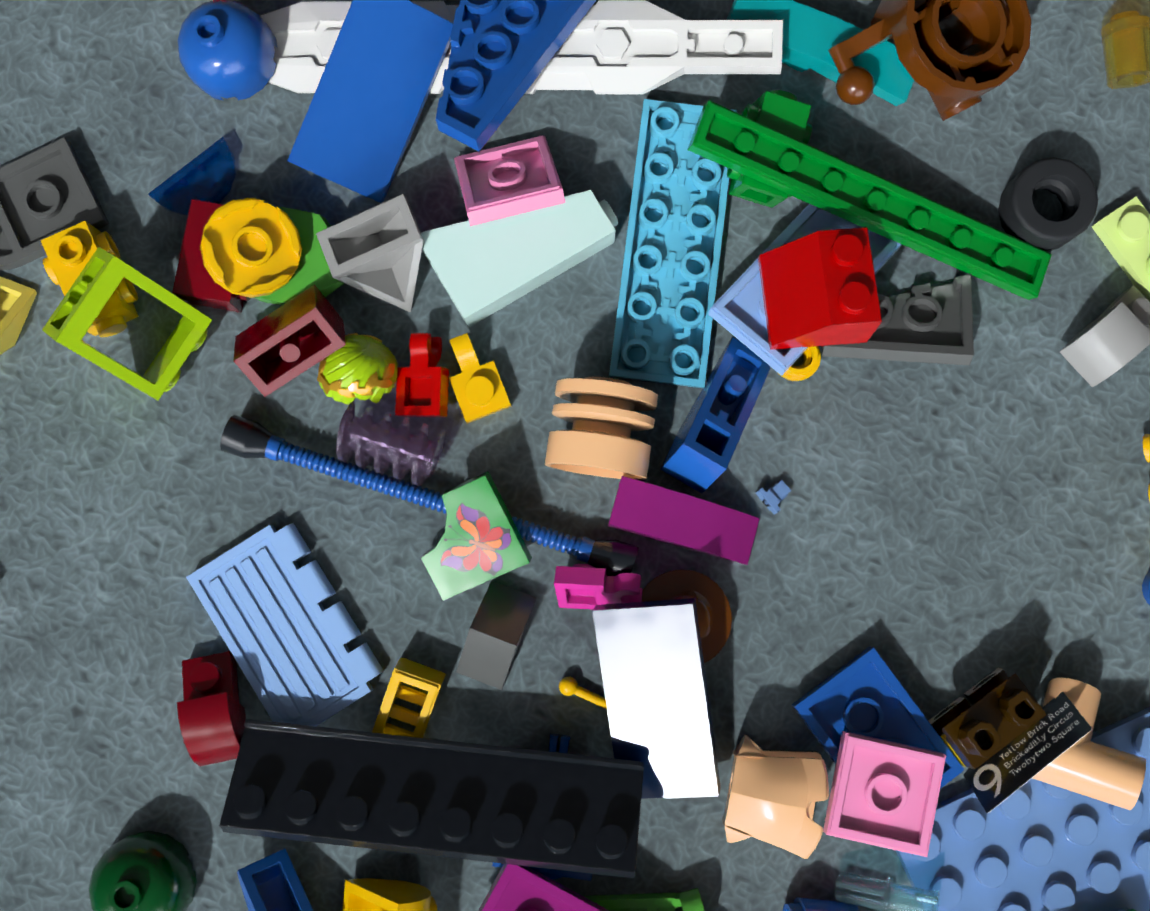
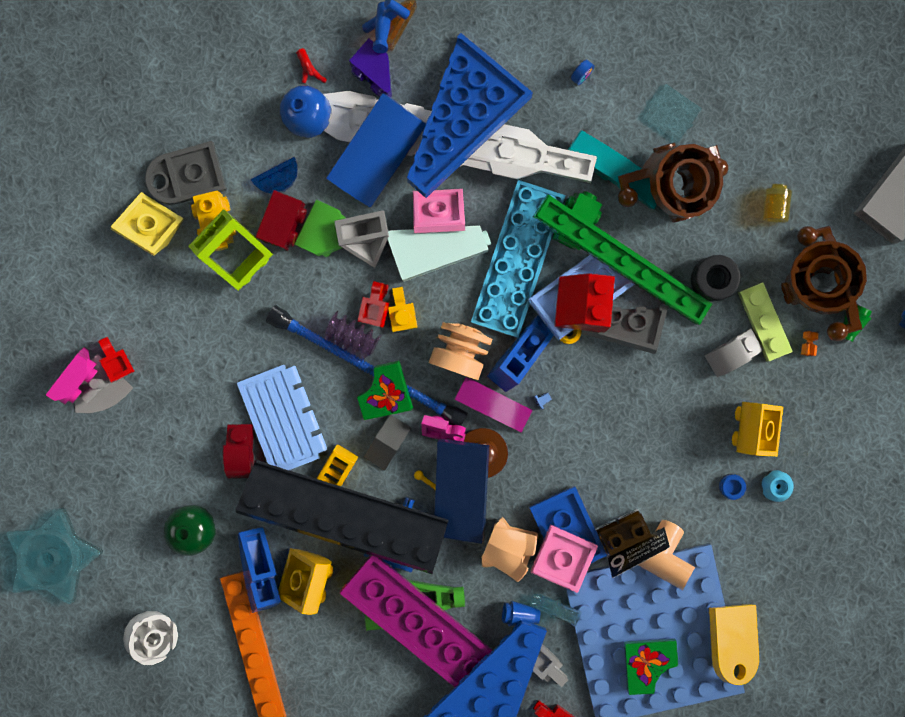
camera: 10 degrees right, 5 degrees up
(250, 247) = (300, 222): yellow tile -> none
(289, 341) = (311, 273): brick -> none
(358, 370) = (342, 294): lime hair -> none

